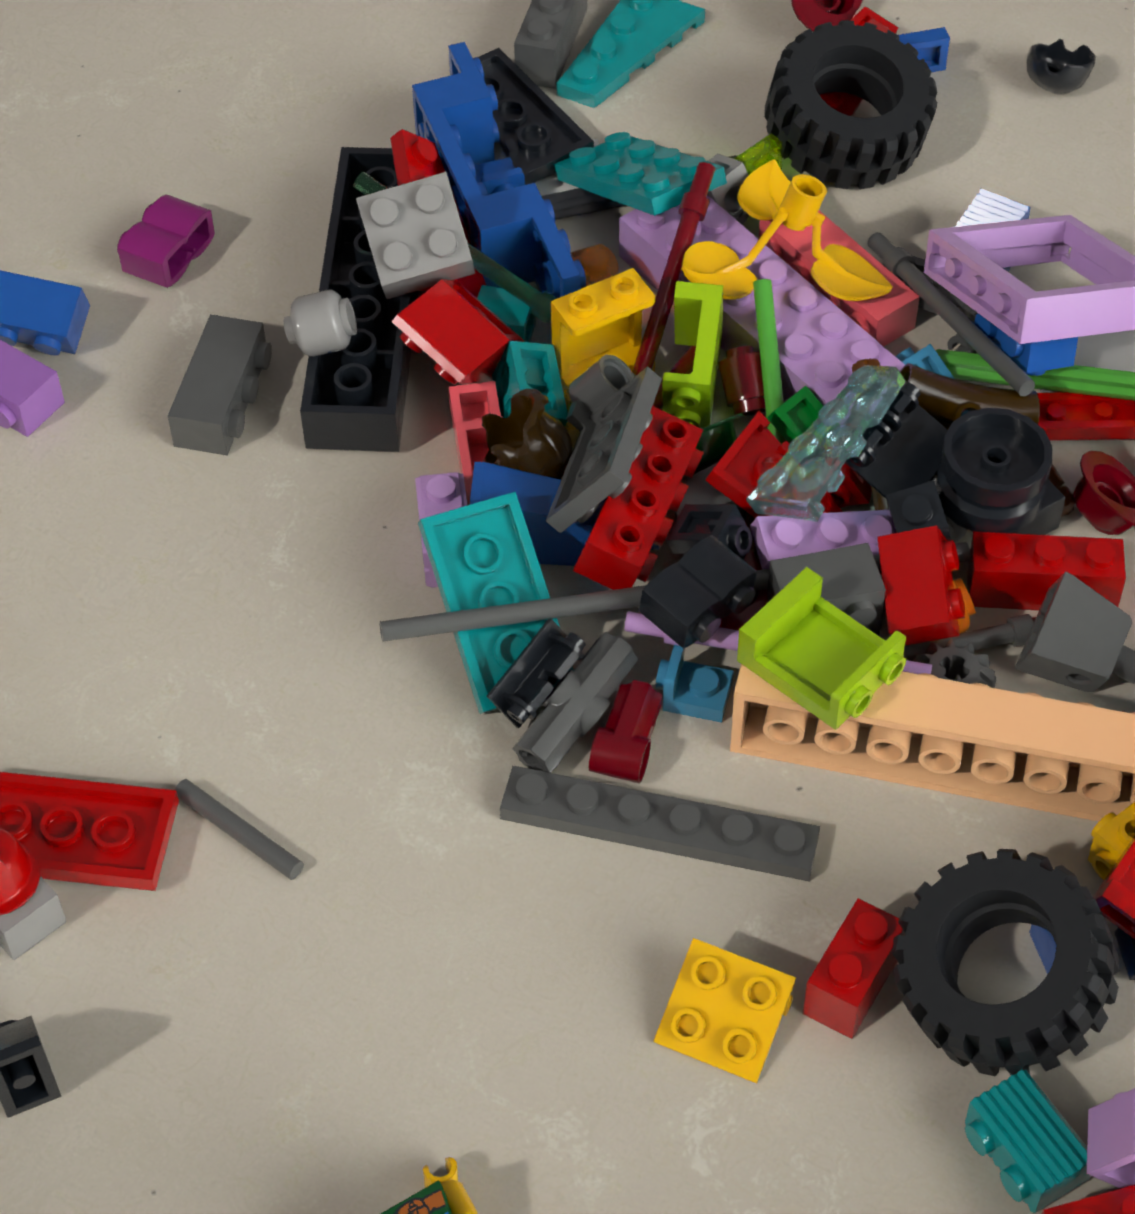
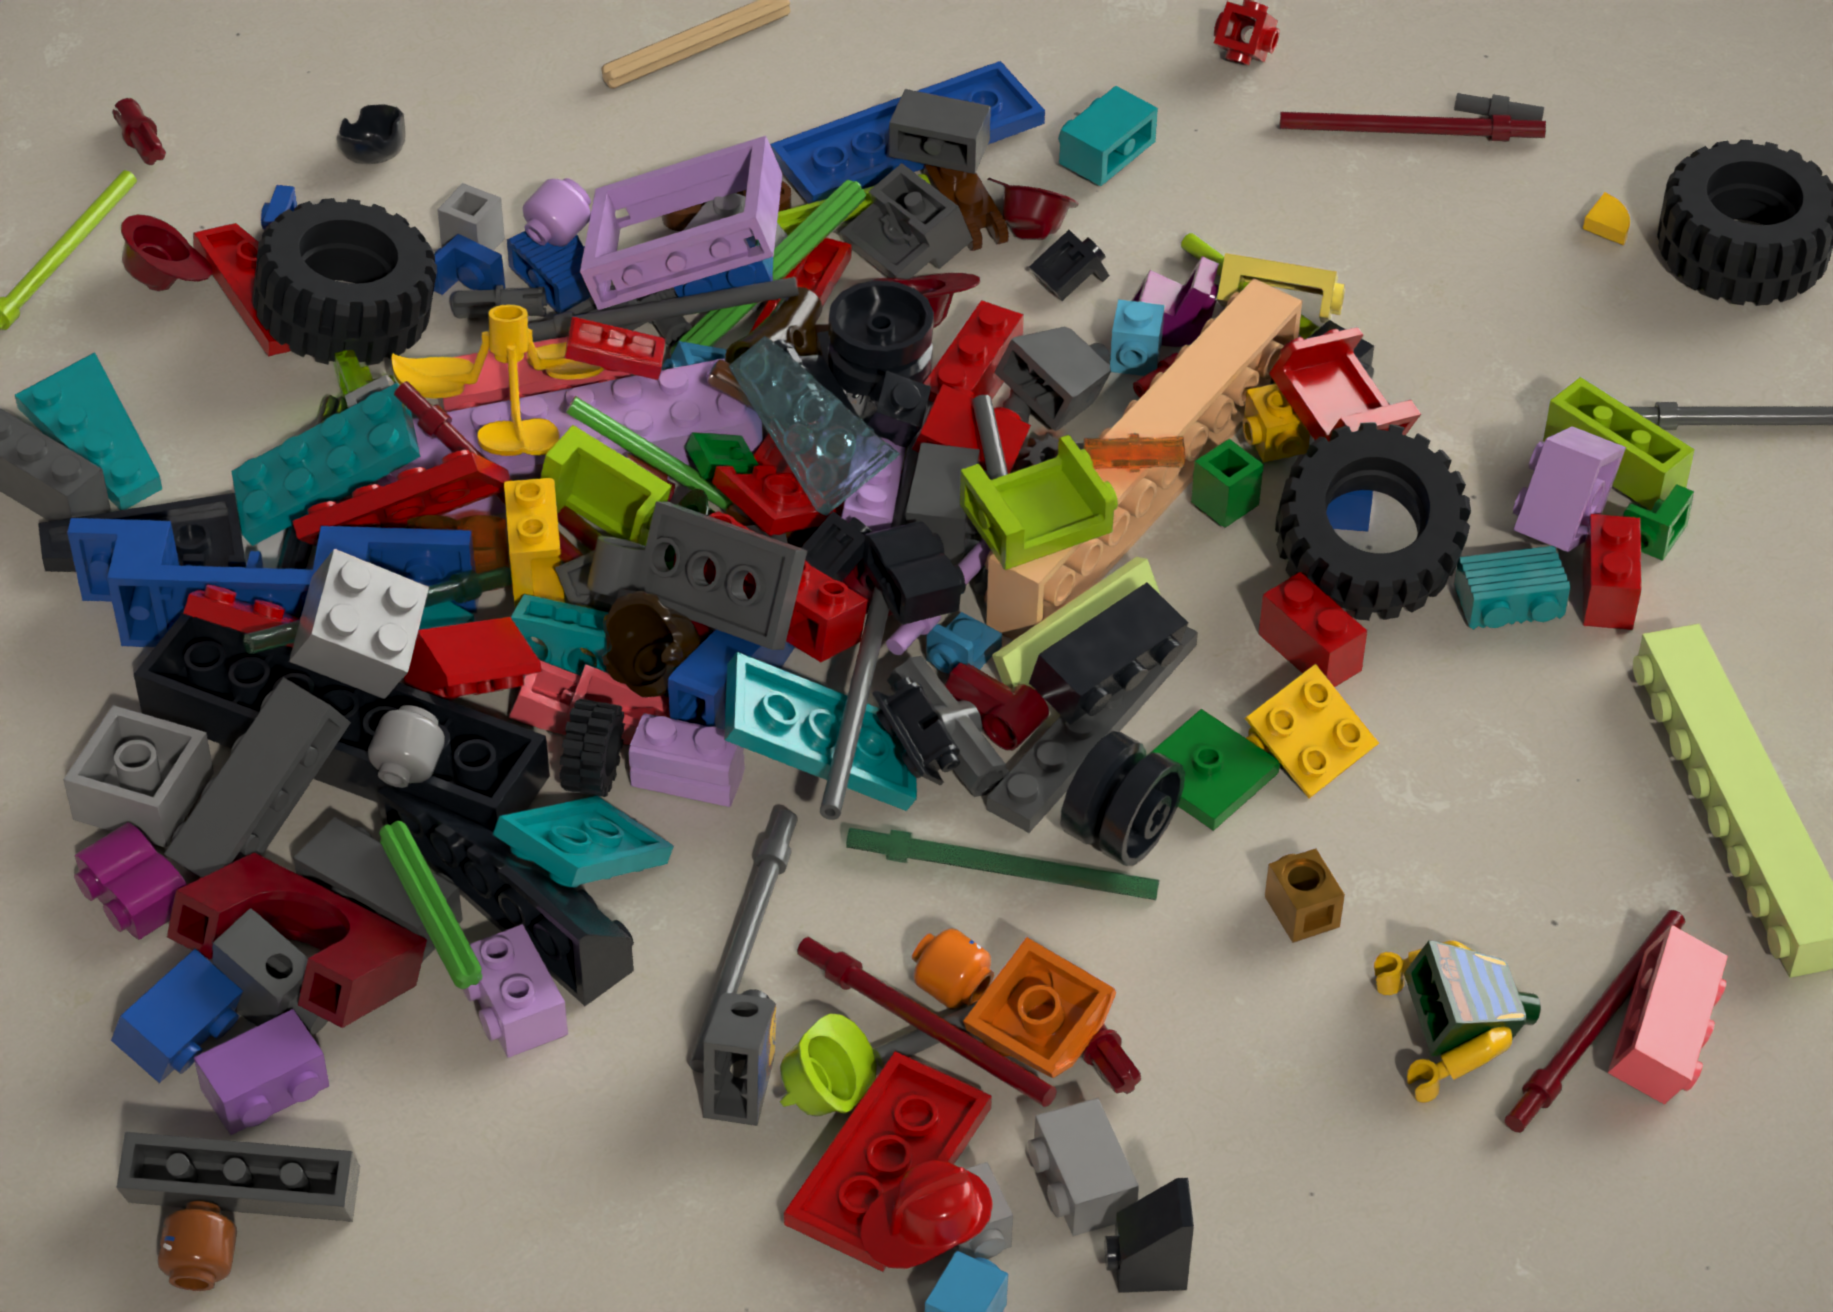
camera: 70 degrees left, 5 degrees down
(87, 345) = (265, 969): none -> dark grey torso
(99, 981) = (1083, 1166): none -> light grey brick
(122, 400) = (361, 954): none -> dark red arch
(127, 675) = (739, 1030): none -> dark grey torso
(139, 747) = (828, 1067): none -> lime piece
(146, 507) = (516, 993): none -> lavender brick
(184, 410) = (430, 905): none -> bright green axle
(234, 476) = (567, 928): none -> black wedge
(249, 881) = (1041, 1010): none -> orange slope
(249, 952) = (1112, 1061): none -> dark red axle
(258, 647) = (772, 861): none -> dark grey bar
(260, 199) = (139, 774): none -> light grey brick
(261, 261) = (259, 781): none -> dark grey brick
(262, 731) = (849, 973): none -> dark red bar
(291, 804) = (952, 968): none -> orange head
(304, 486) = (582, 841): none -> teal plate
(410, 439) = (592, 747): none -> black tyre
(428, 724) = (901, 847): none -> clear green bar
(499, 1087) = (1304, 895): none -> pearl gold brick
(531, 863) = (1122, 798): none -> black wheel
(604, 226) = (418, 492): none -> red plate
(638, 936) = (1218, 767): none -> green plate
(706, 792) = (1109, 654): none -> black brick
(758, 767) = (1018, 658): none -> yellowish green tile
(861, 291) = (615, 348): none -> red plate
(898, 592) = (989, 436): none -> dark grey bar
(917, 216) = (479, 302): none -> dark grey axle
(941, 709) = (1136, 452): none -> clear orange pin
(943, 175) = (468, 263): none -> blue bracket
(988, 160) = (472, 215): none -> light grey brick
(1013, 821) = (1227, 483): none -> green brick
(1015, 195) = (556, 212): none -> lavender head

